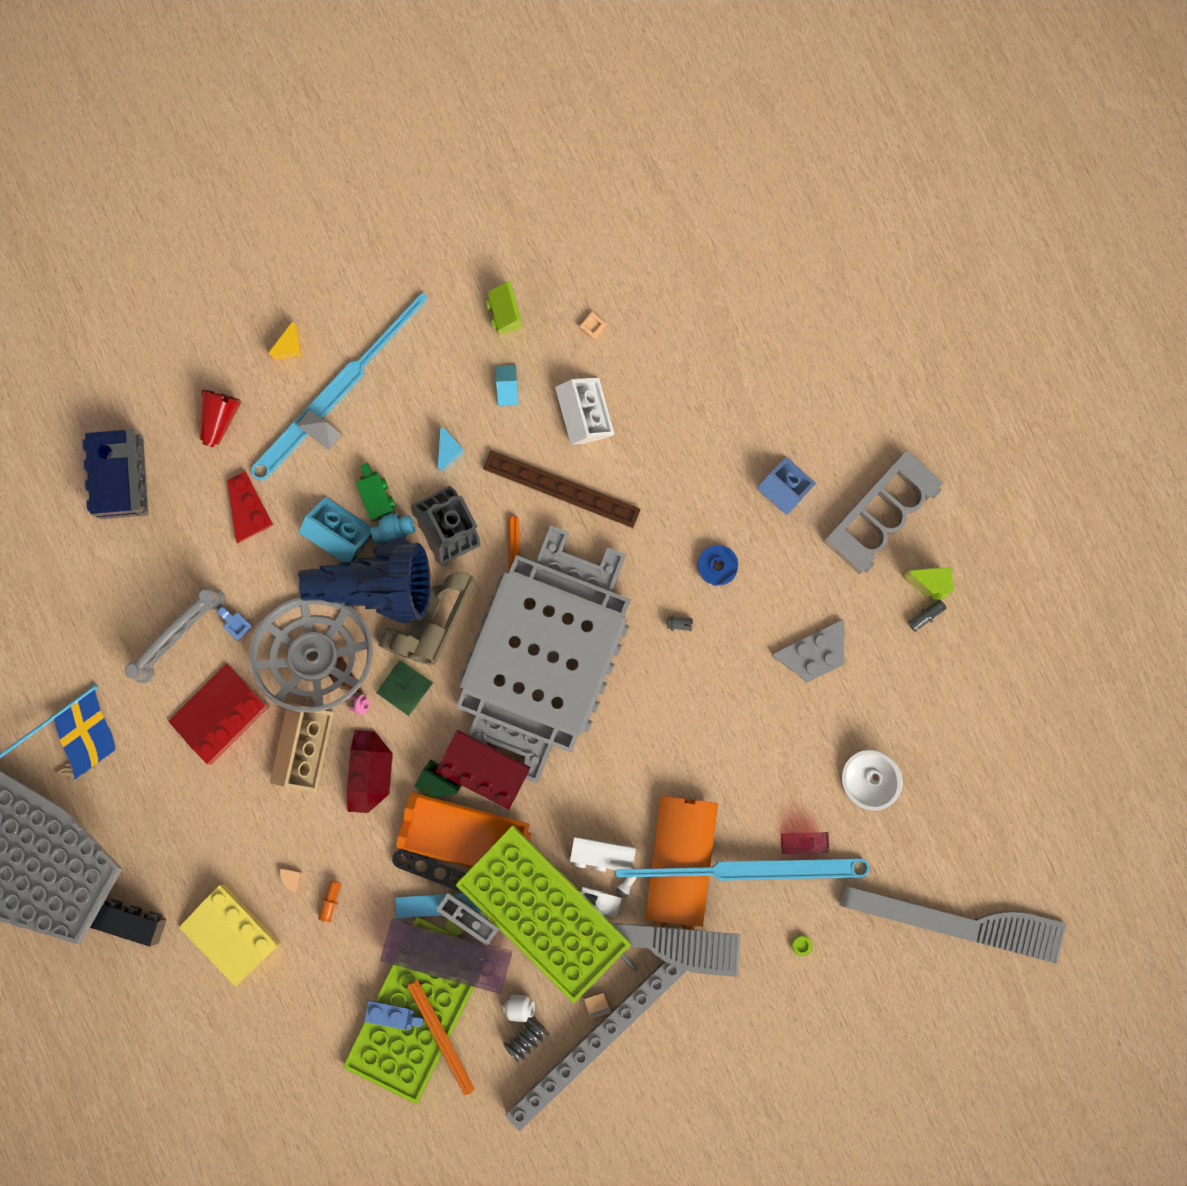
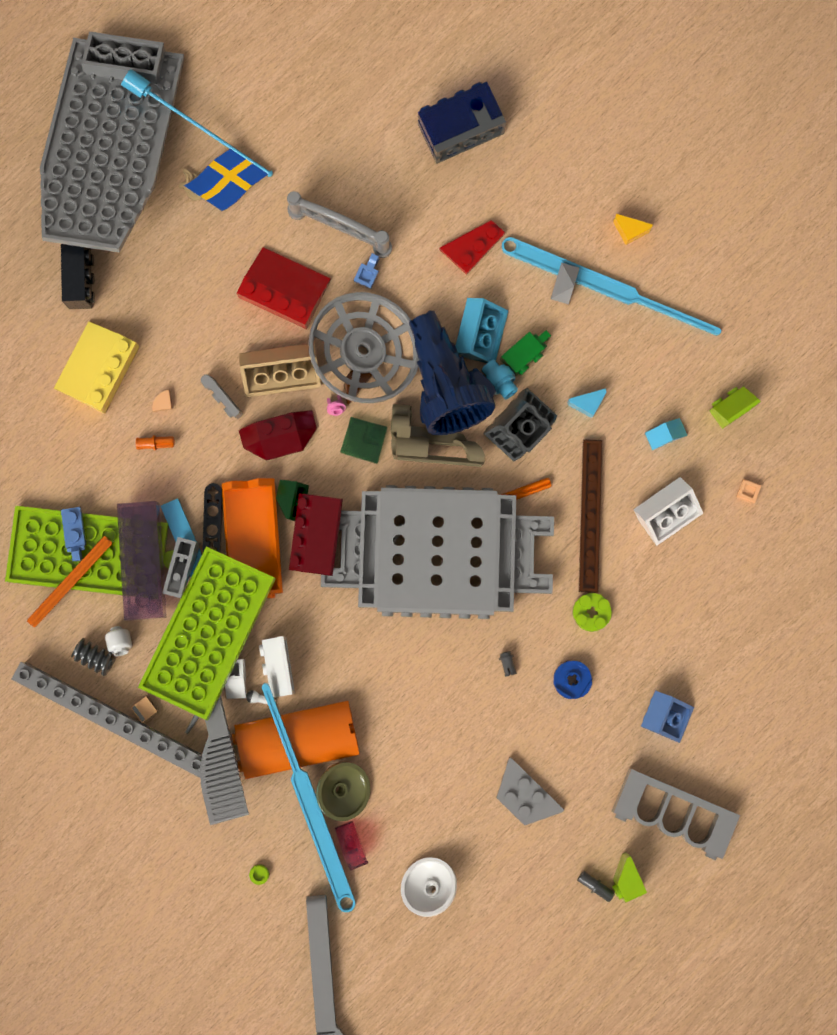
camera: 70 degrees right, 0 degrees up
(216, 416) = (544, 189): red cone -> none
(306, 817) = (221, 396): none -> light grey hinge
(661, 533) = (583, 618): none -> lime plate
(755, 825) = (352, 792): none -> olive dish

